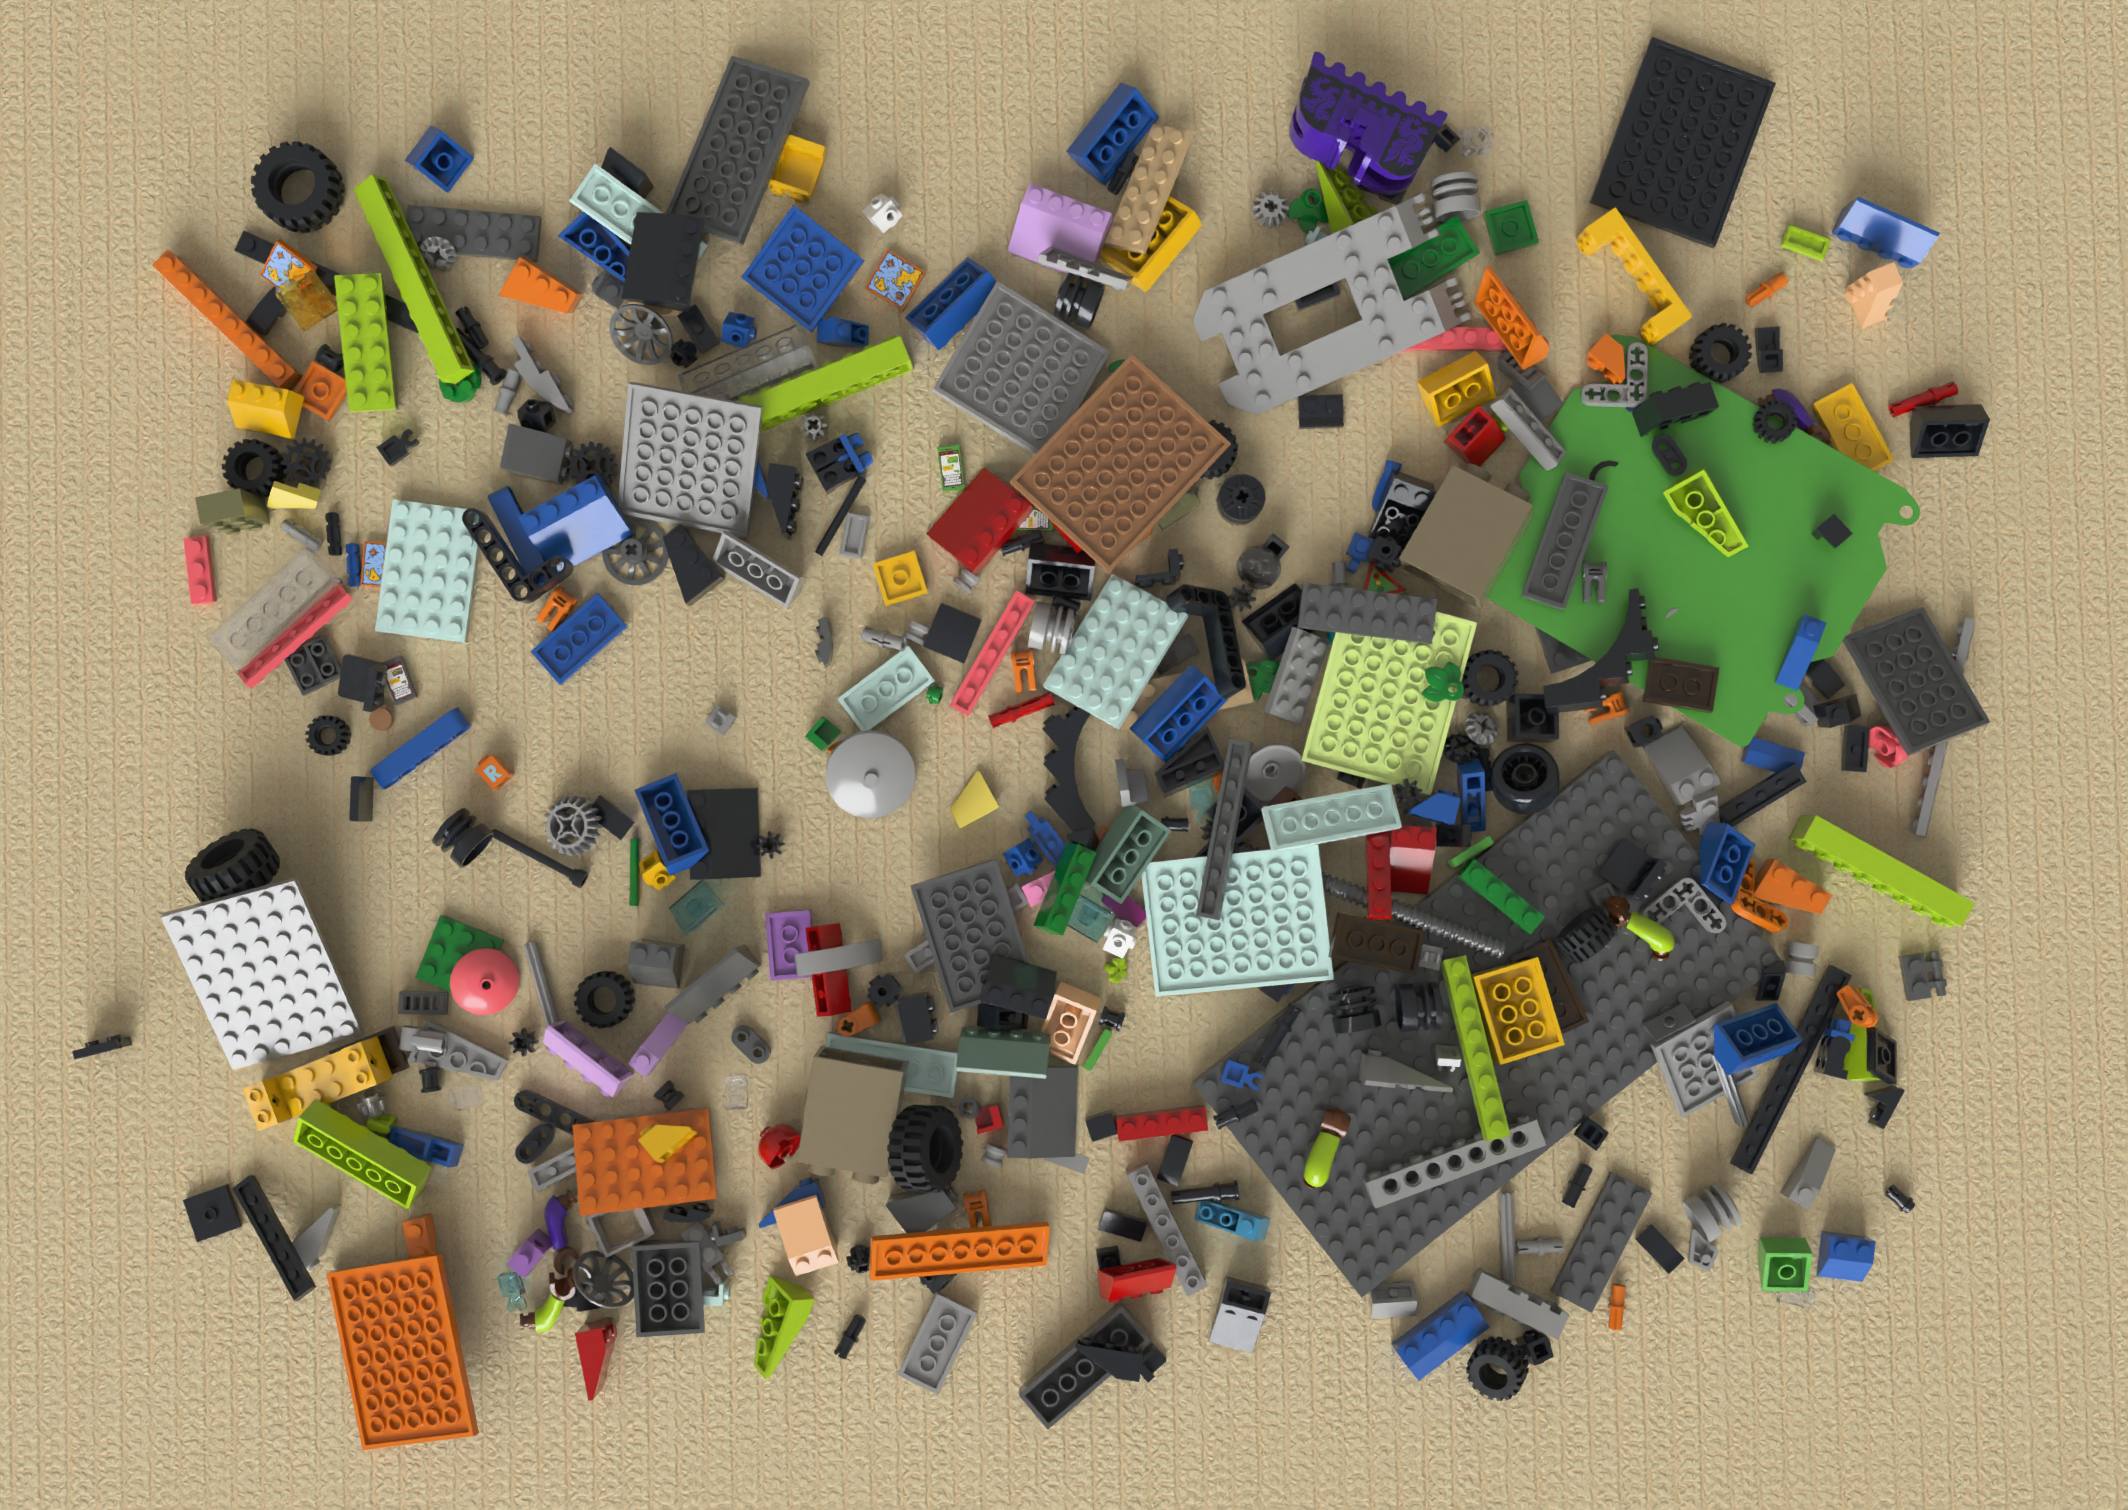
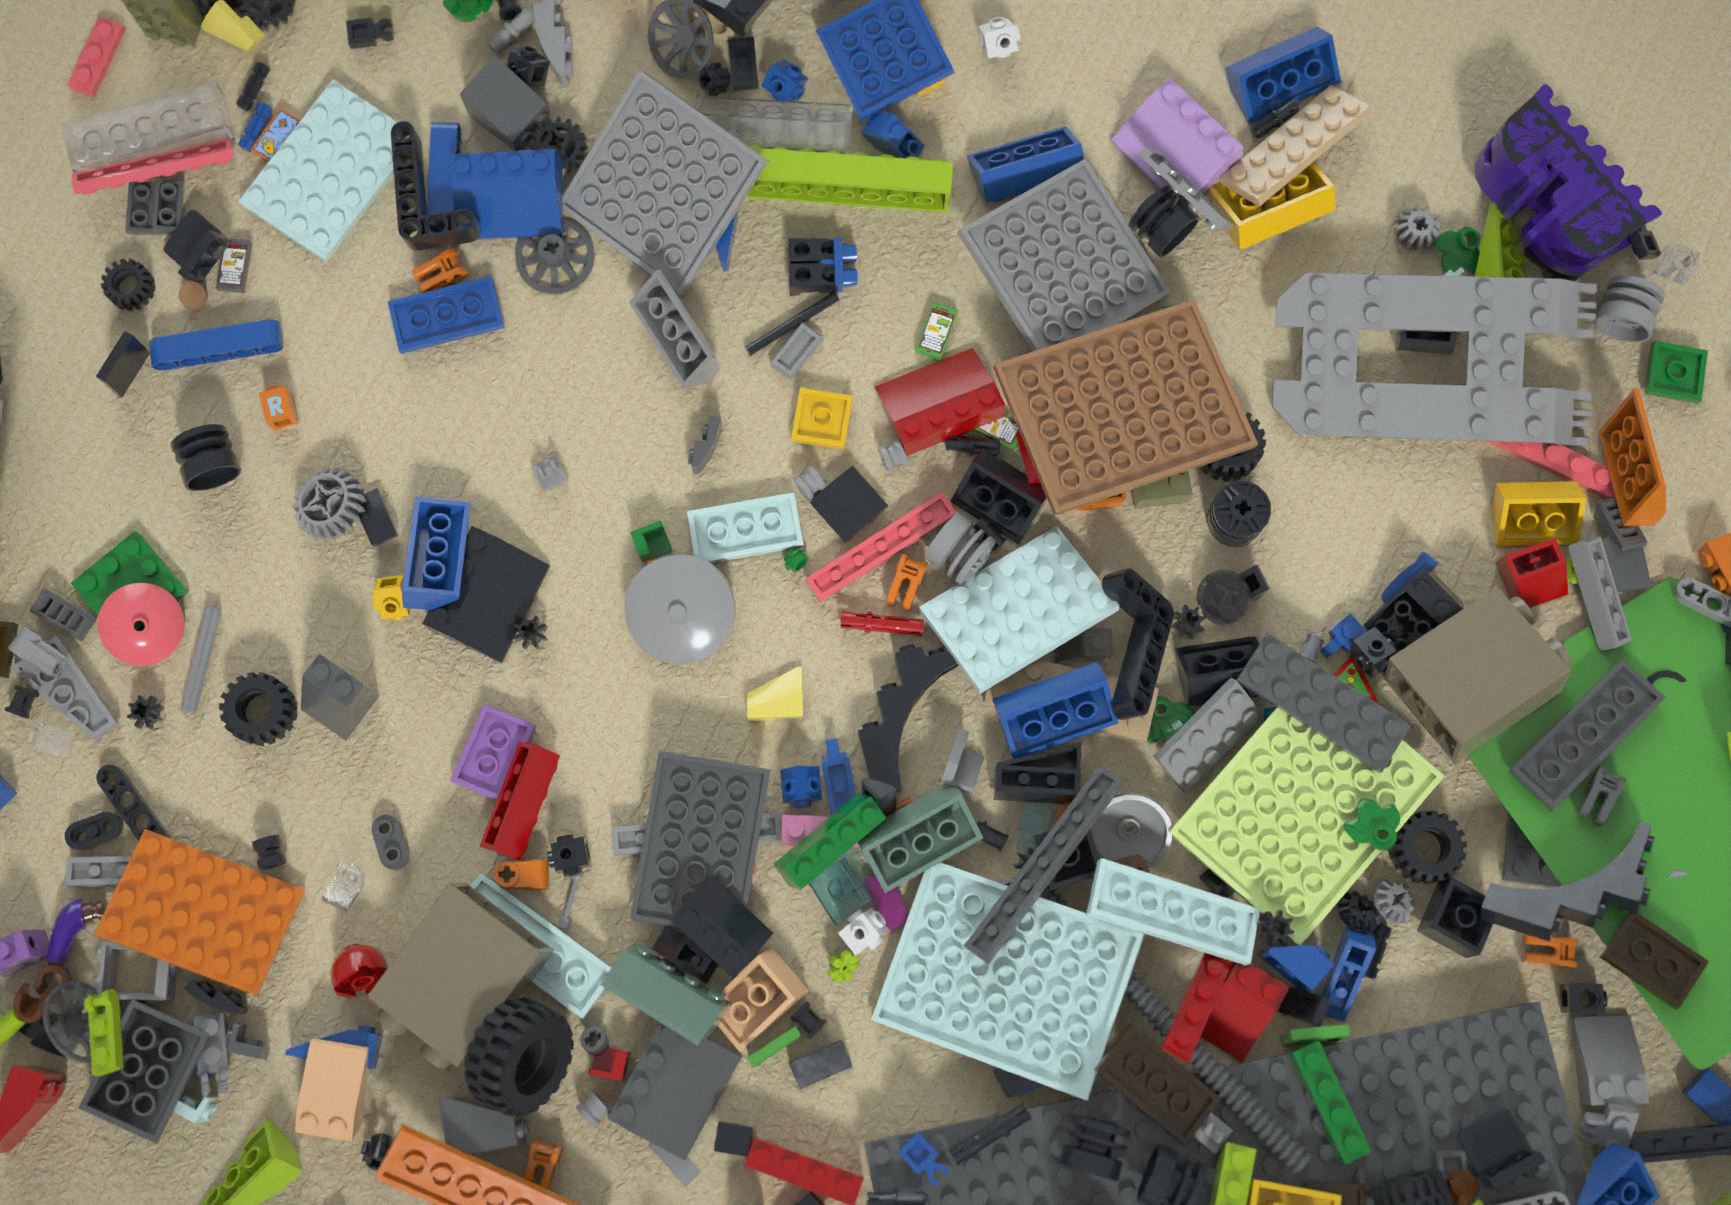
camera: 30 degrees right, 10 degrees down
(301, 534) = (219, 71): light grey axle -> none
(576, 876) = (303, 563): black piece -> none
(586, 1057) = (202, 762): lavender slope -> none
(626, 1277) = (105, 1032): none -> lime plate
(634, 872) = (367, 589): green bar -> none
(657, 1044) = (290, 788): lavender slope -> none
(665, 1140) = (234, 894): yellow slope -> none
(691, 565) = (605, 296): black wedge -> none
(696, 907) = (413, 661): clear light blue slope -> none
(714, 984) = (384, 751): dark grey slope -> none
(783, 488) = (747, 261): black slope -> none
(815, 420) = (806, 220): light grey gear -> none
(838, 958) = (538, 791): light grey slope -> none
(884, 638) = (771, 472): light grey pin -> none
(895, 280) = (976, 113): tile -> none
(917, 1017) = (590, 904): black brick -> none
(1135, 1044) = (820, 1064): none -> black slope
(1175, 564) = (1114, 556): black bracket -> none
(1320, 411) = (1372, 465): black plate -> none
(1433, 258) = (1575, 362): green plate -> none
(1527, 764) = (1419, 981): black wheel -> none

